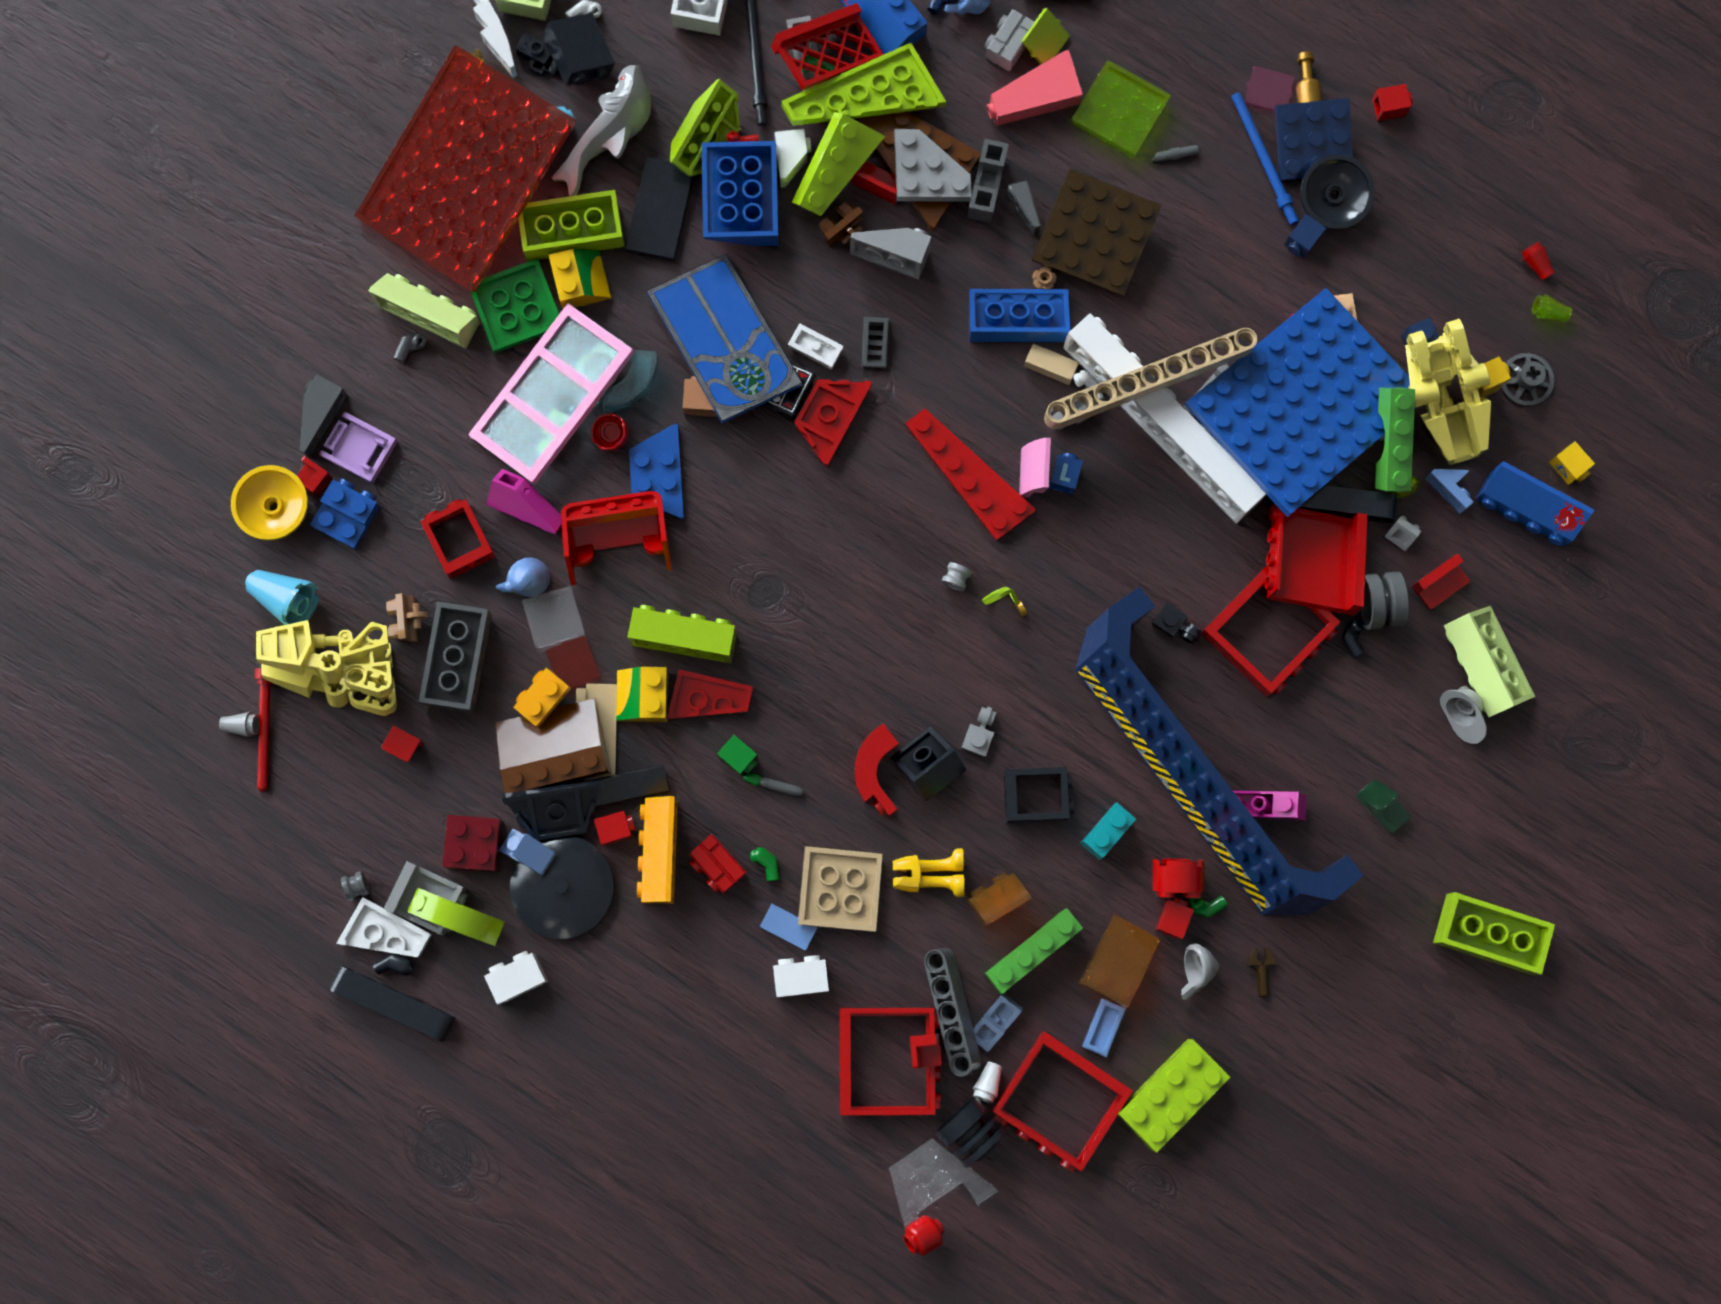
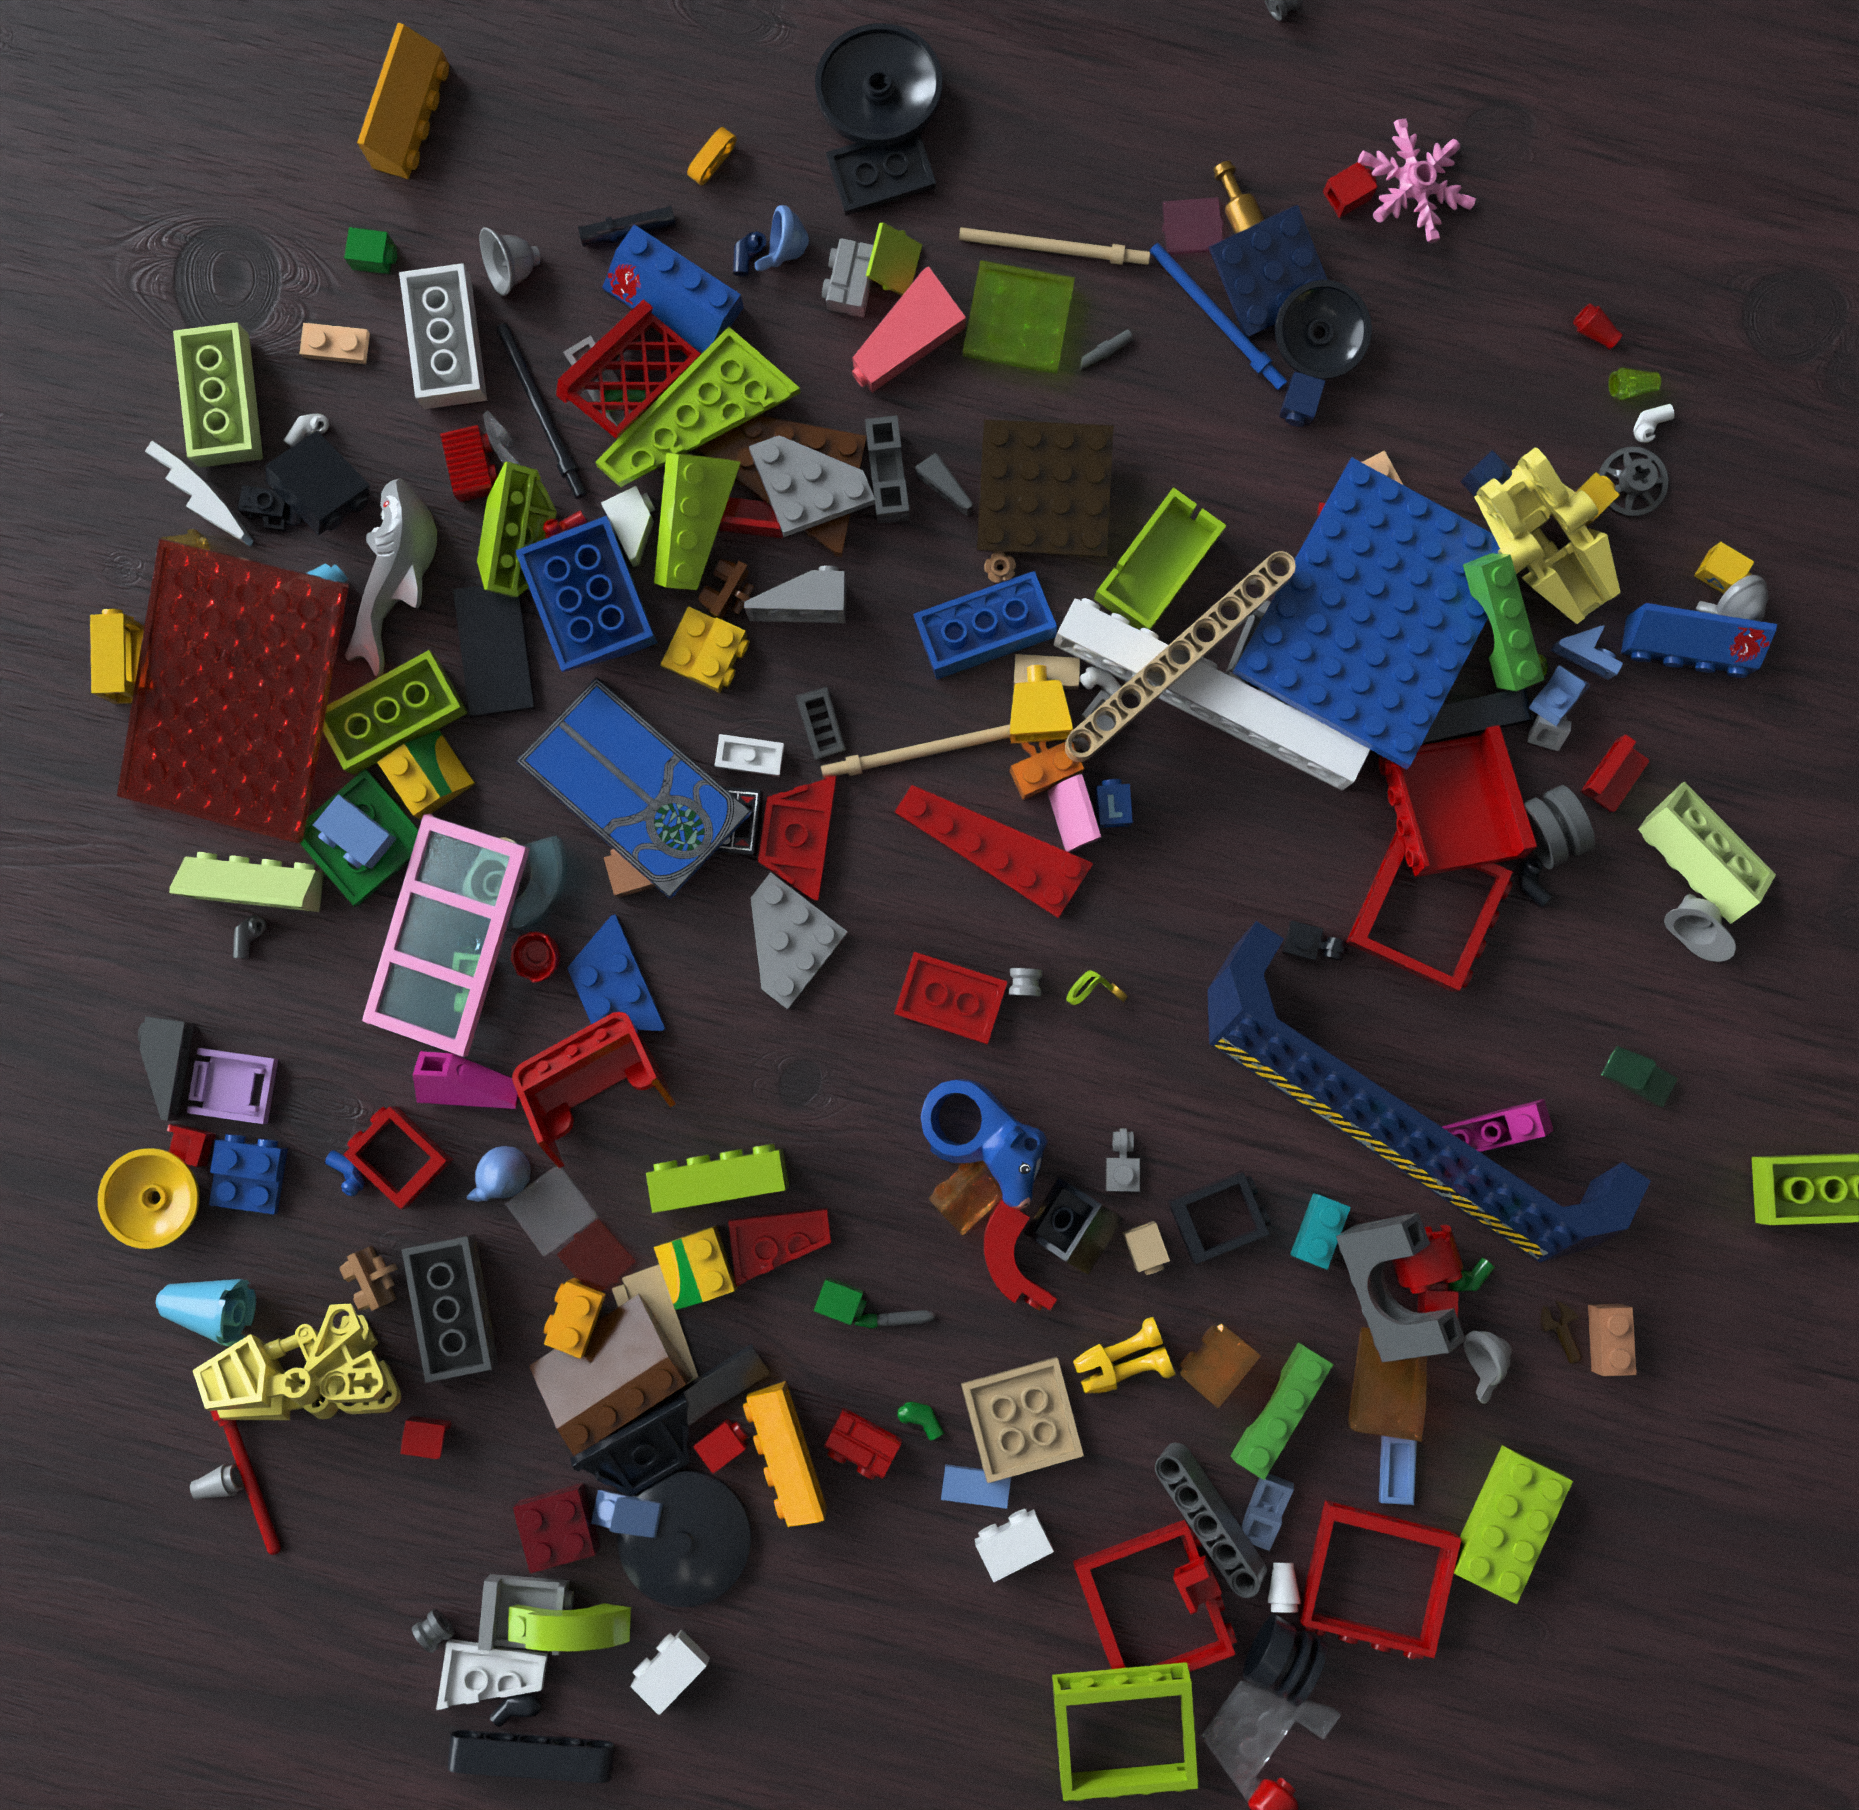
camera: 15 degrees left, 5 degrees up
(391, 116) = (114, 655): none -> yellow window
(419, 545) = (353, 1177): none -> blue arm
(514, 298) = (354, 832): none -> medium blue brick
(690, 73) = (469, 463): none -> red brick
(719, 62) = (499, 438): none -> clear slope
(797, 487) = (790, 939): none -> light grey plate
(811, 262) = (705, 650): none -> yellow plate
(845, 1103) = (1119, 1686): none -> lime window
(860, 713) = (967, 1195): none -> clear orange bracket
(889, 380) = (855, 764): none -> tan bar
(898, 568) = (950, 997): none -> red plate
(900, 685) = (1005, 1145): none -> blue animal
(976, 798) = (1146, 1248): none -> tan brick
(1023, 429) = (1043, 769): none -> orange brick
(1035, 384) = (1039, 709): none -> yellow torso
(1136, 917) = (1395, 1330): none -> dark grey arch
(1161, 312) = (1159, 561): none -> lime piece
(1207, 90) = (1116, 254): none -> tan bar
(1296, 987) = (1612, 1339): none -> nougat brick
(1419, 509) = (1559, 695): none -> medium blue slope
(1441, 112) = (1416, 180): none -> bright pink piece
(1554, 339) = (1648, 421): none -> white arm
(1579, 486) = (1742, 600): none -> light grey hat

